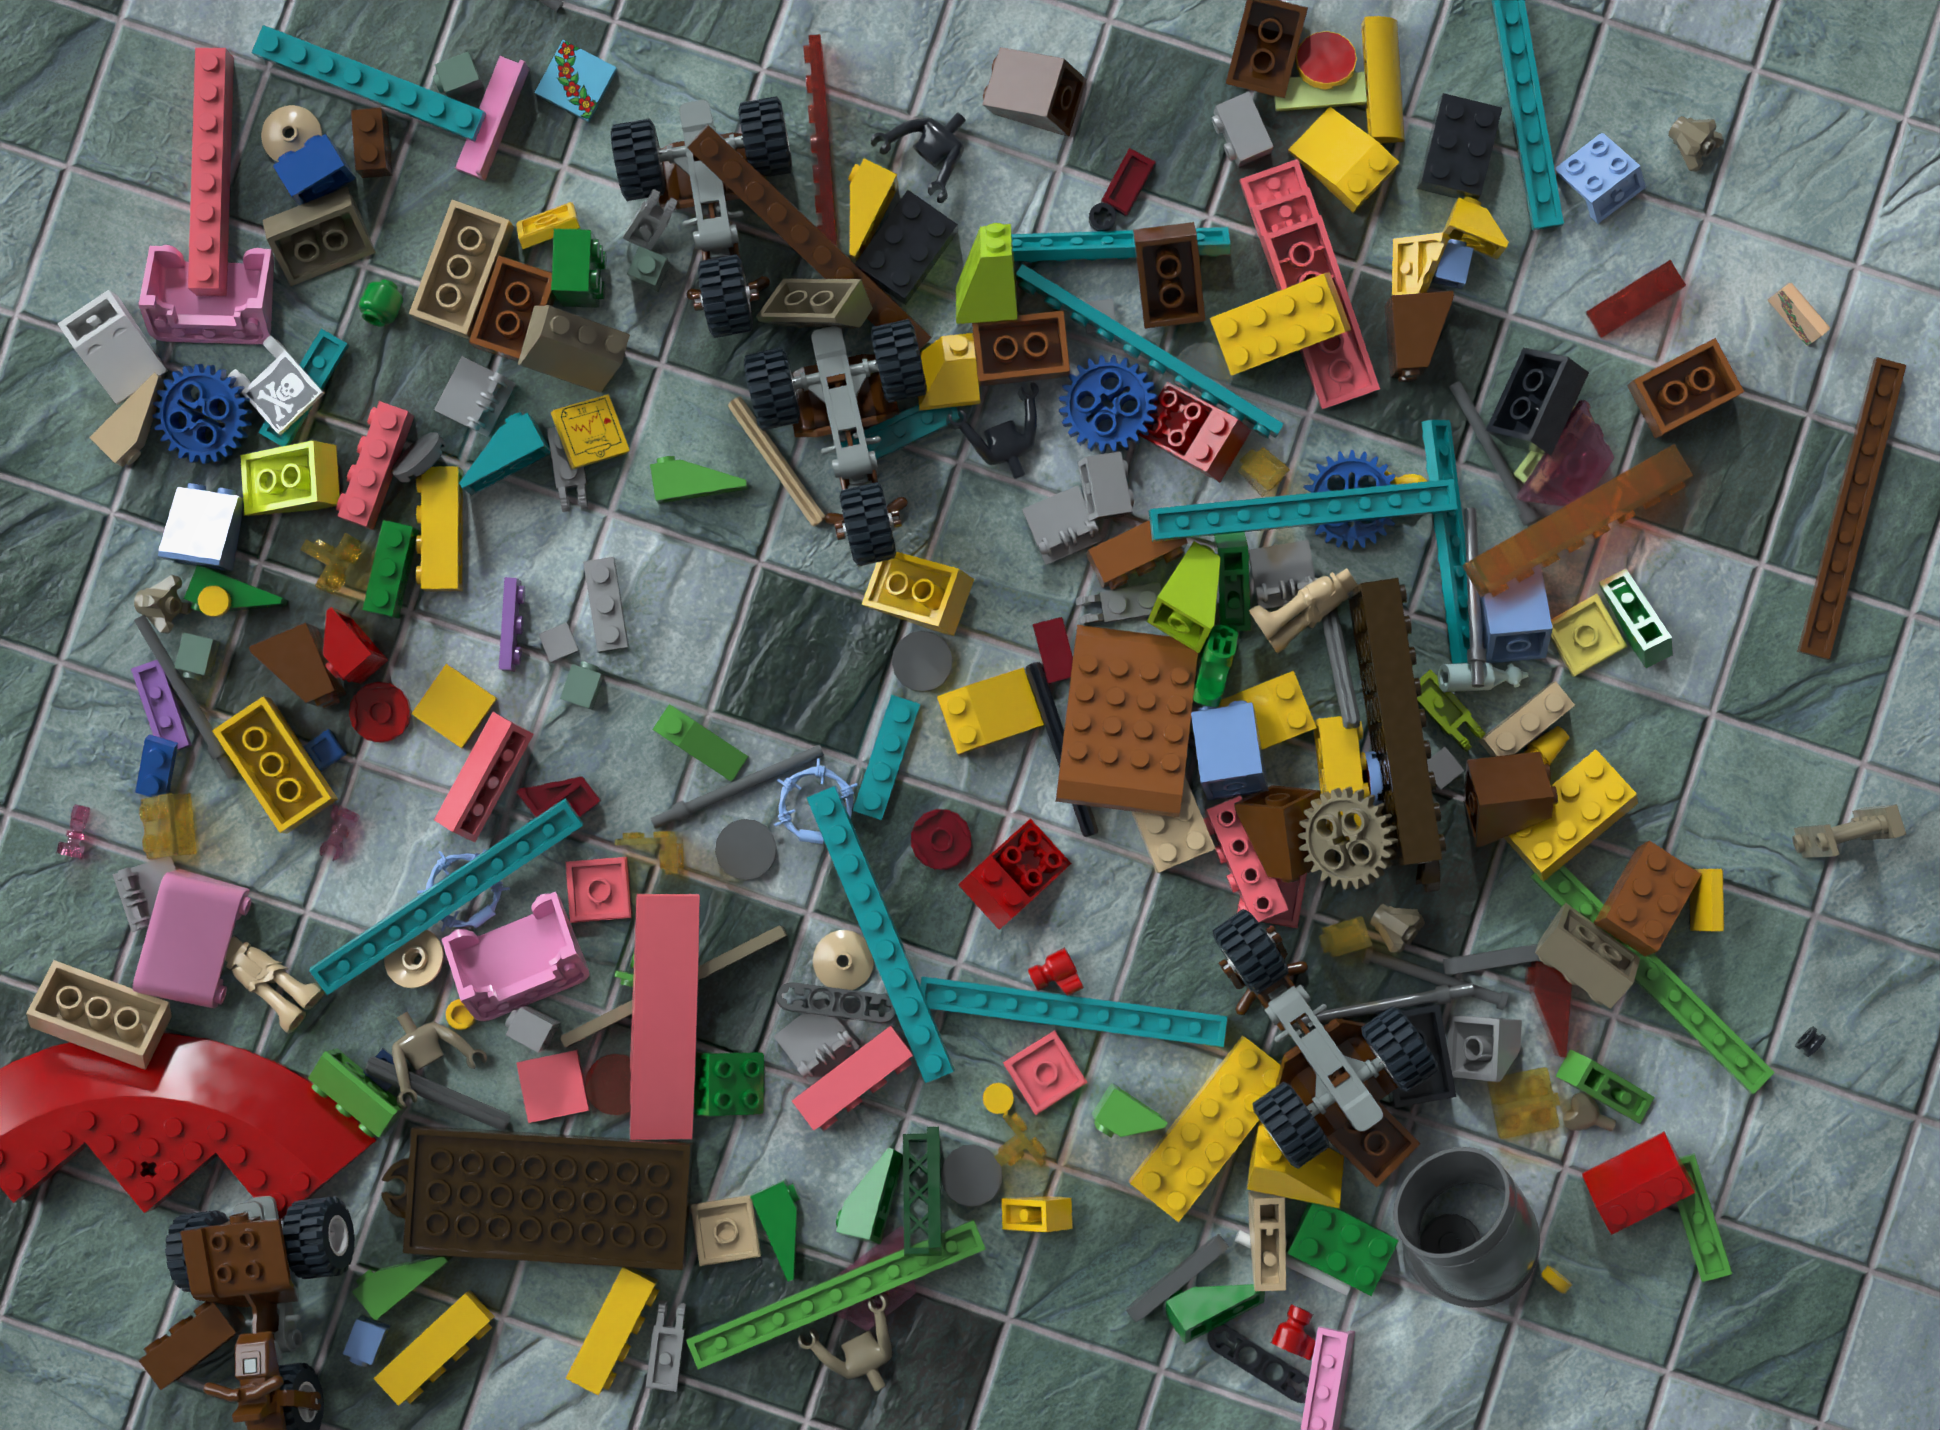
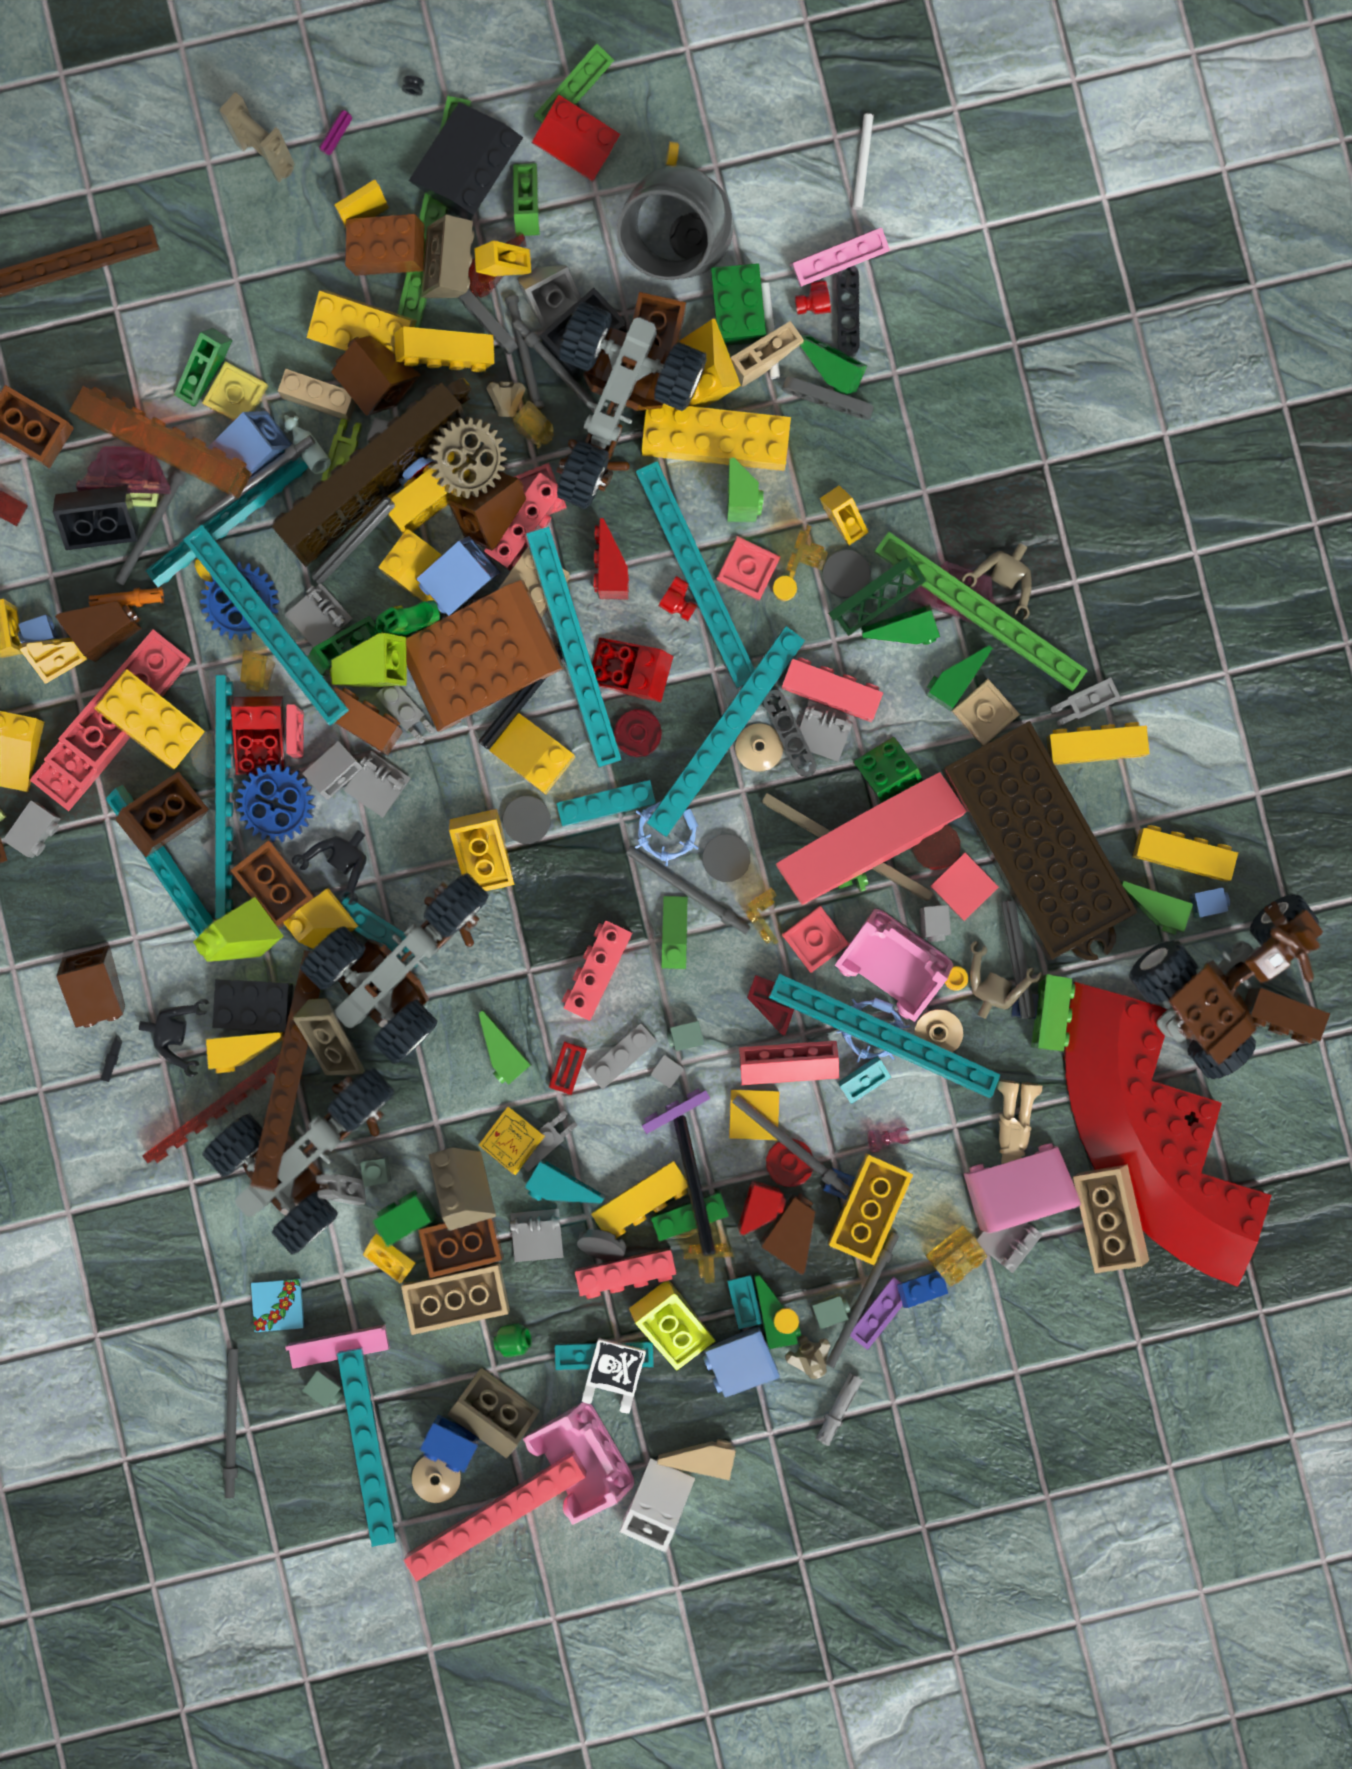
camera: 130 degrees left, 0 degrees up
(79, 819) = (1002, 1315): clear pink piece -> none
(83, 589) = (839, 1409): none -> light grey pin
(212, 389) = (644, 1417): blue gear -> none
(264, 571) = (744, 1301): none -> teal plate
(338, 743) = (828, 1175): none -> dark grey bar
(371, 142) = (406, 1417): reddish brown brick -> none
(415, 593) = (694, 1186): none -> black axle
(415, 846) = (864, 1079): none -> plate
(614, 519) = (558, 1065): none -> red tile
(712, 635) = (597, 970): none -> coral brick
(776, 462) = (453, 1002): tan axle -> none
(945, 65) = (111, 1059): none -> black piece
(1054, 649) = (464, 736): dark red tile -> none
(1074, 826) = (573, 646): none -> teal plate
(1095, 210) = (148, 894): black bush -> none
(1128, 182) = (116, 885): dark red tile -> none
(1132, 922) = (613, 574): none -> red slope
(1170, 471) = (295, 732): none -> coral tile
(1313, 601) = (332, 584): tan piece -> none
(1425, 392) = (137, 597): none -> orange pin
(1489, 890) = (444, 348): none -> yellow brick
(1524, 1103) = (570, 244): clear yellow bracket -> none
(1548, 1015) = (502, 259): none -> yellow slope
(1549, 744) = (322, 372): yellow cone -> none
(1585, 1114) = (552, 201): dark tan rock -> none
(1687, 1046) = (465, 160): none -> black slope
(1810, 924) = (335, 132): none -> magenta axle

